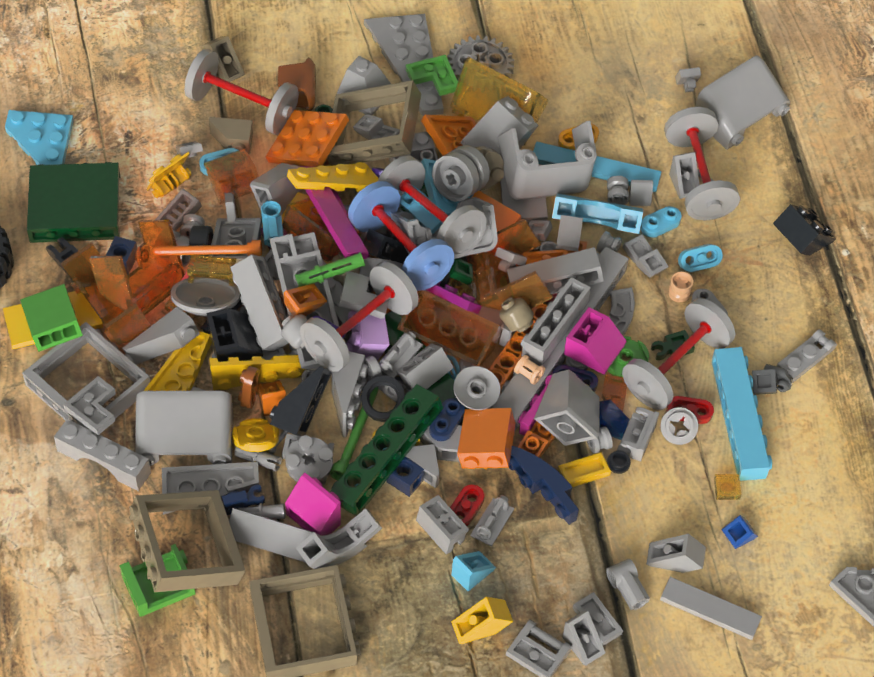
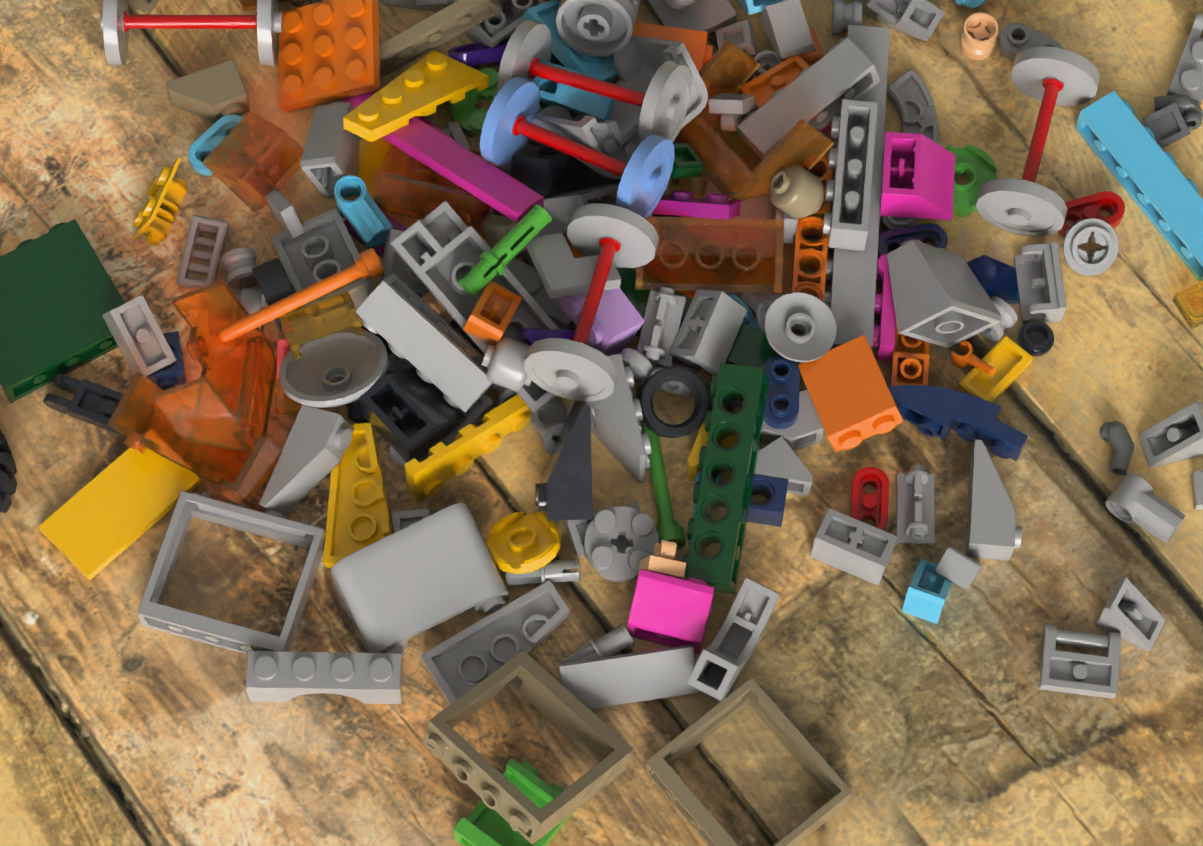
camera: 25 degrees left, 10 degrees up
(51, 317) = (129, 508): bright green brick -> none
(88, 408) = (268, 621): light grey plate -> none
(112, 232) = (139, 337): none -> light grey panel
(191, 147) = (164, 147): light grey plate -> none
(242, 499) = (552, 651): dark blue plate -> none
(249, 390) = (473, 466): dark orange plate -> none
(270, 395) = (510, 472): orange slope -> none
(323, 476) = (663, 560): none -> light nougat tile
(482, 620) = (984, 657): yellow slope -> none
(496, 564) = (958, 568): none -> light grey slope
(530, 547) = (991, 514): none -> light grey slope
(534, 375) = (844, 264): light nougat bush -> none
(571, 455) = (970, 359): none -> orange hand
(603, 621) = (1147, 579): light grey plate -> none
(614, 390) = (972, 235): clear orange tile -> none
(636, 544) = (1122, 443): none -> dark grey arm
(670, 344) = (1015, 128): dark green plate -> none

